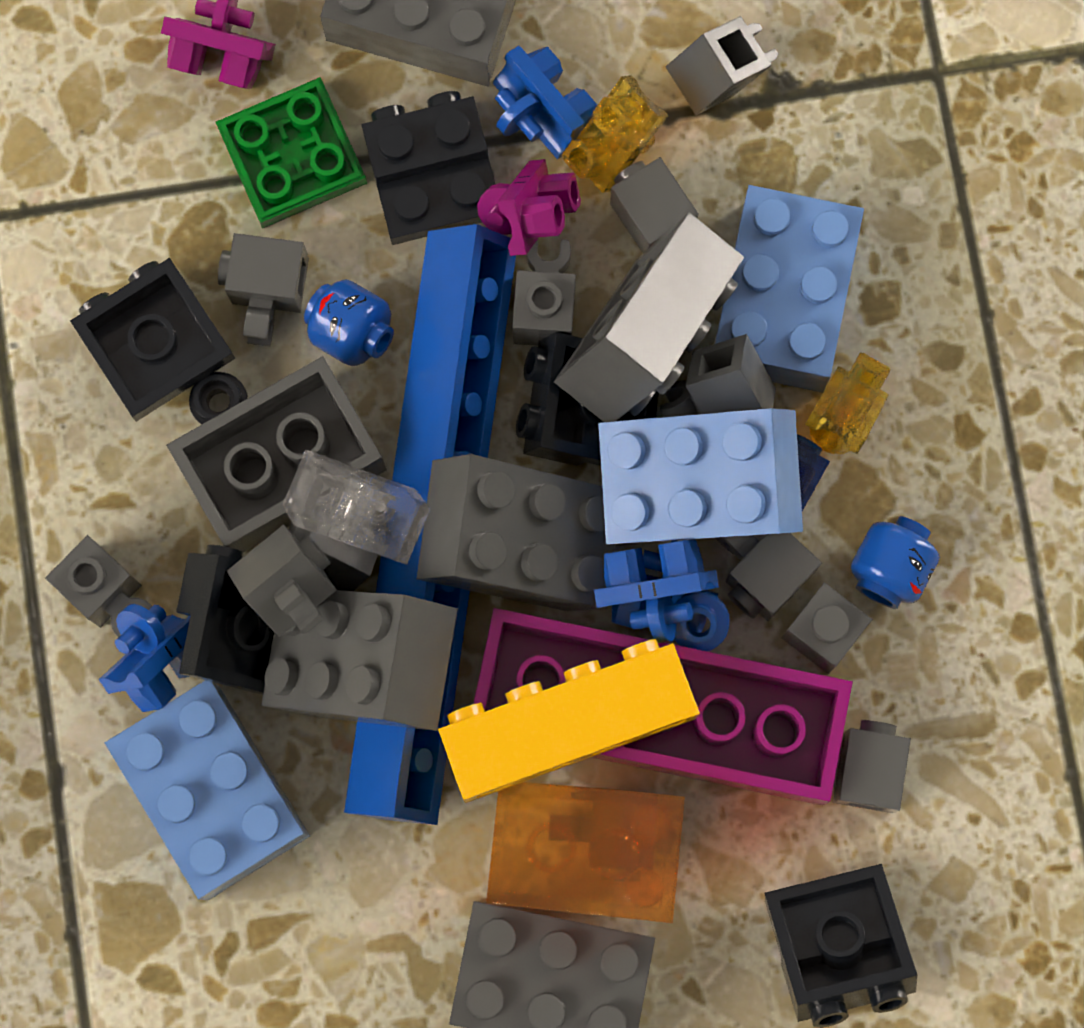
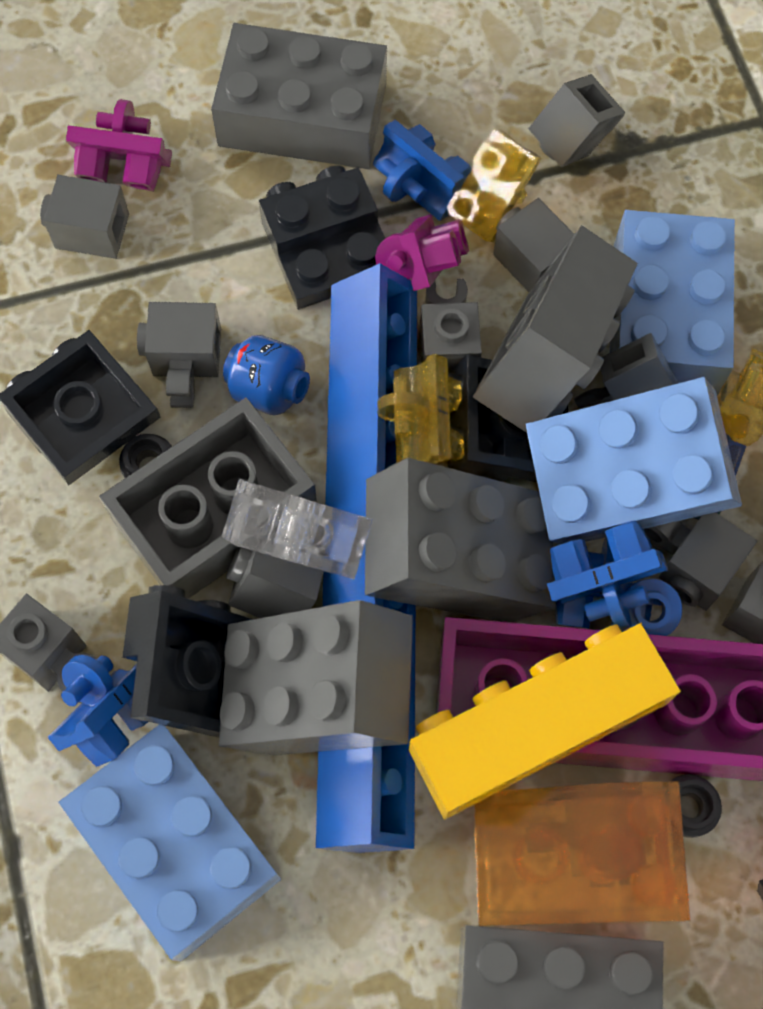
camera: 10 degrees left, 10 degrees down
(174, 118) = (85, 216): none -> dark grey brick
(284, 581) = (232, 609): dark grey brick -> none
(291, 152) = (196, 238): green tile -> none
(498, 394) = (421, 412): none -> clear yellow hips
(732, 814) = (708, 804): none -> black plate

